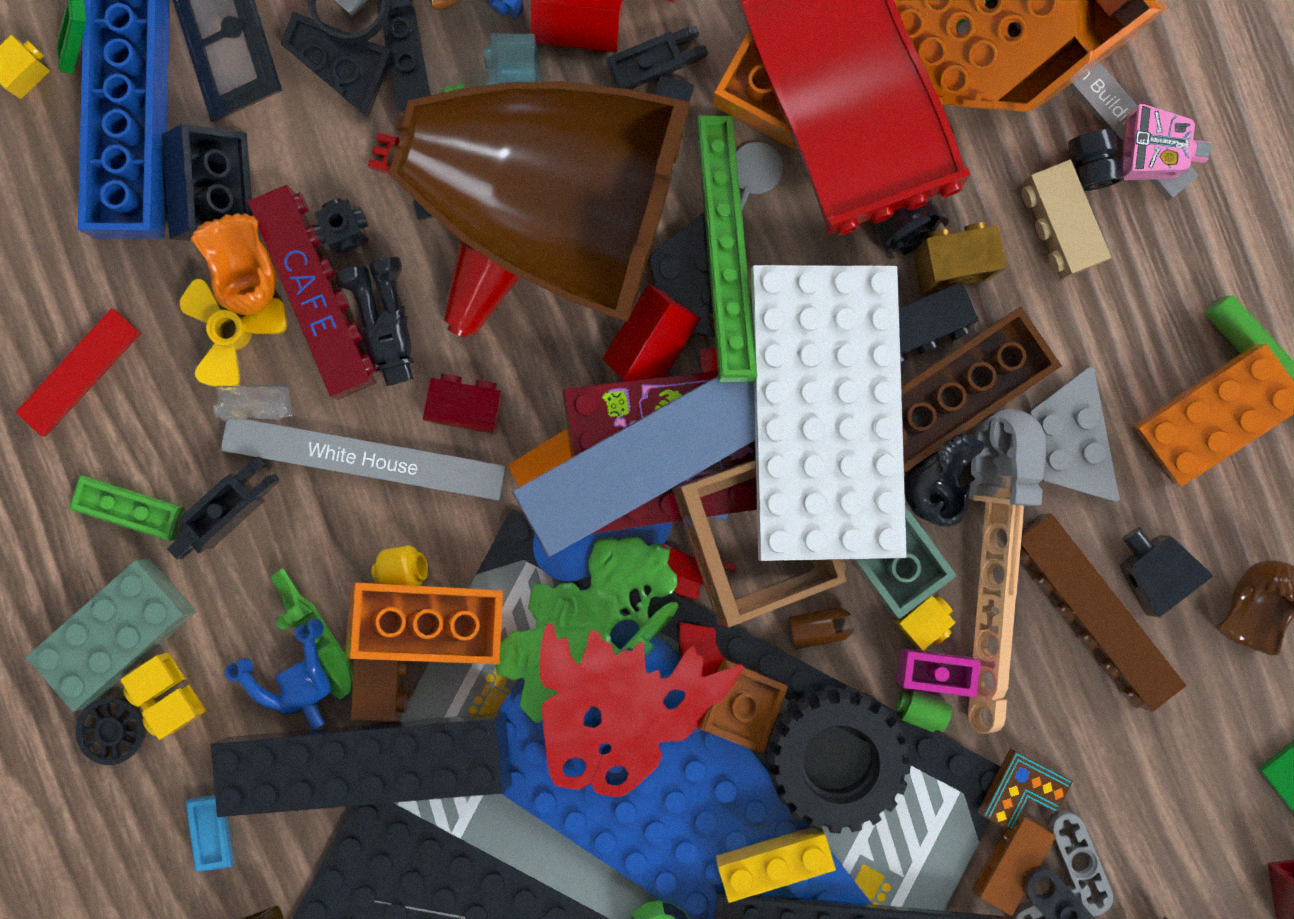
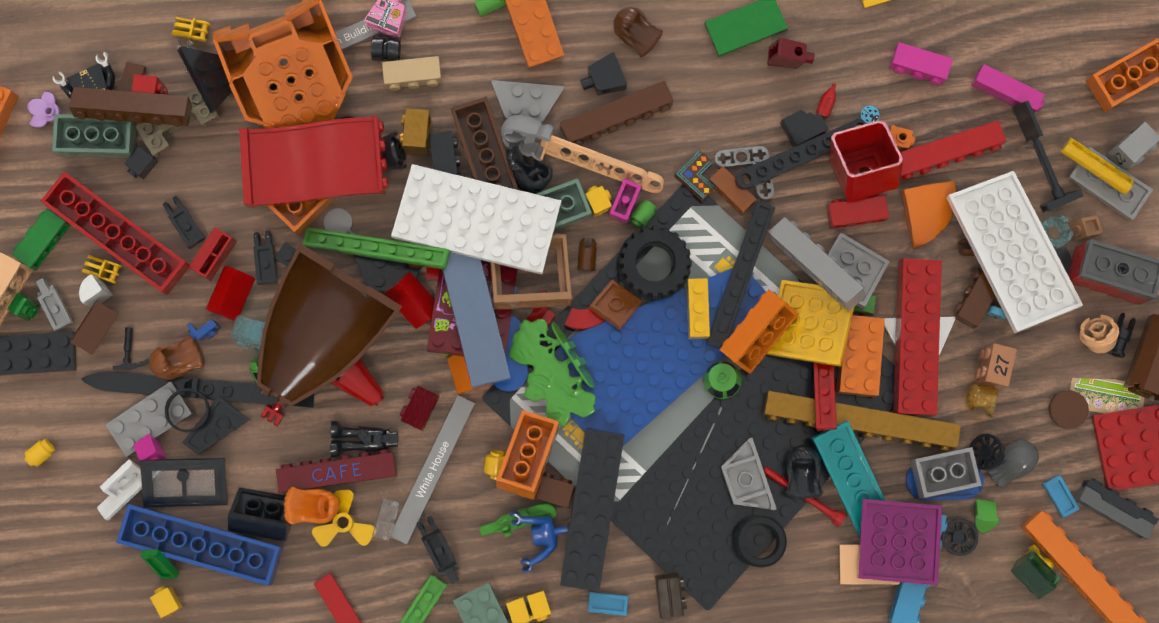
camera: 80 degrees left, 5 degrees down
(349, 234) = (313, 447): black brick -> none
(629, 708) = (599, 359): red piece -> none

